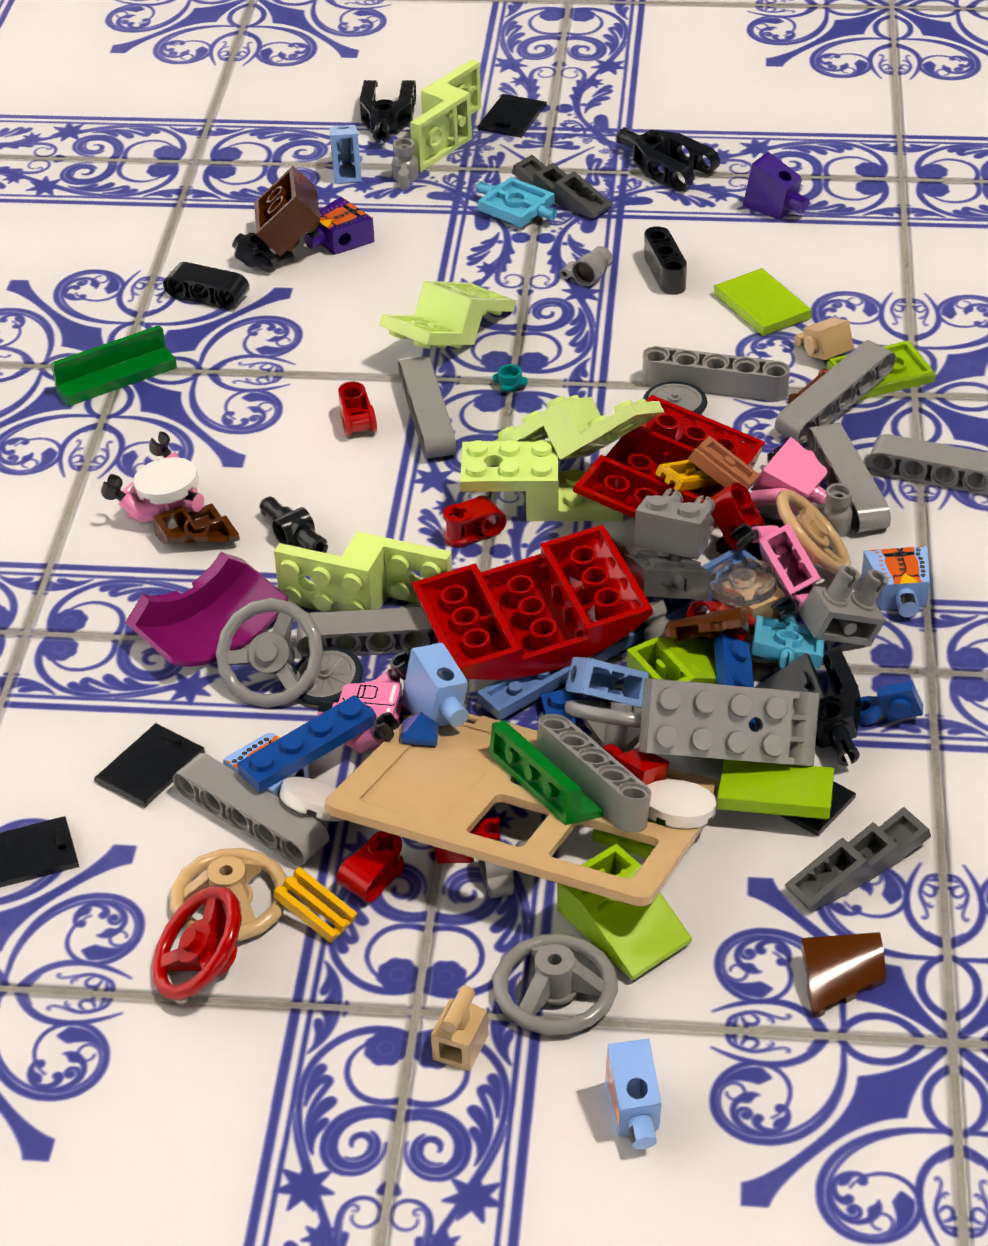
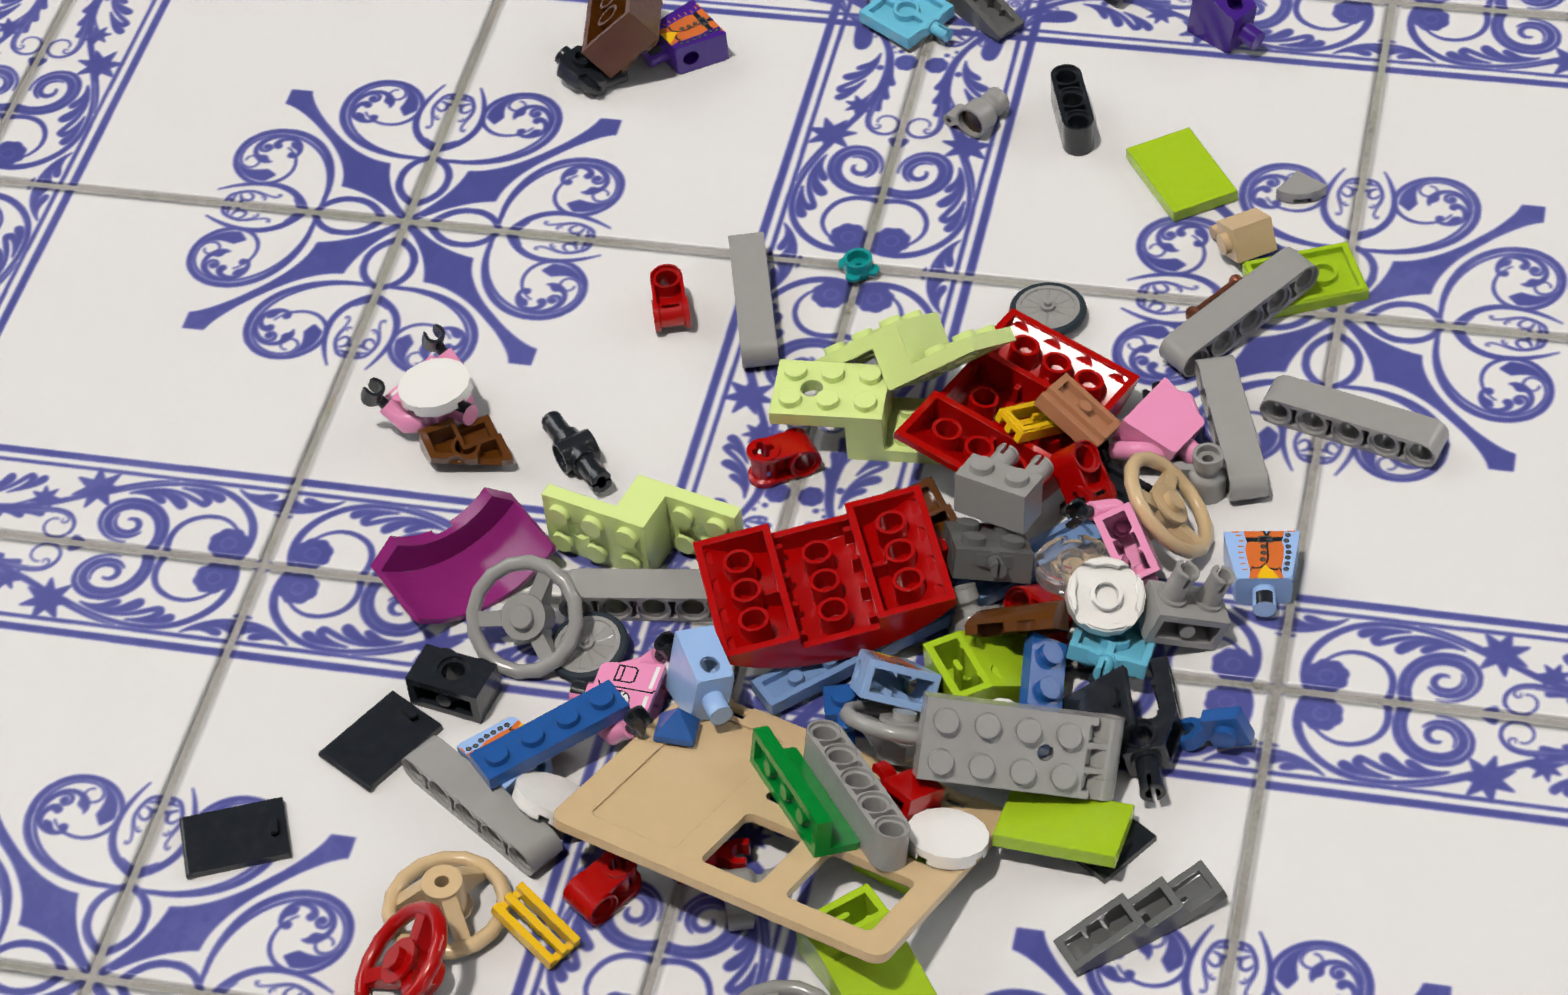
camera: 10 degrees right, 5 degrees up
(112, 366) = (396, 221): green panel -> none
(206, 285) = (518, 114): black beam -> none
(211, 712) = (453, 683): none -> black brick
(447, 314) = (794, 176): yellowish green bracket -> none
(717, 373) = (1104, 275): light grey beam -> none
(778, 602) = (1105, 596): none -> white tile
(862, 305) = (1300, 187): none -> light grey tile

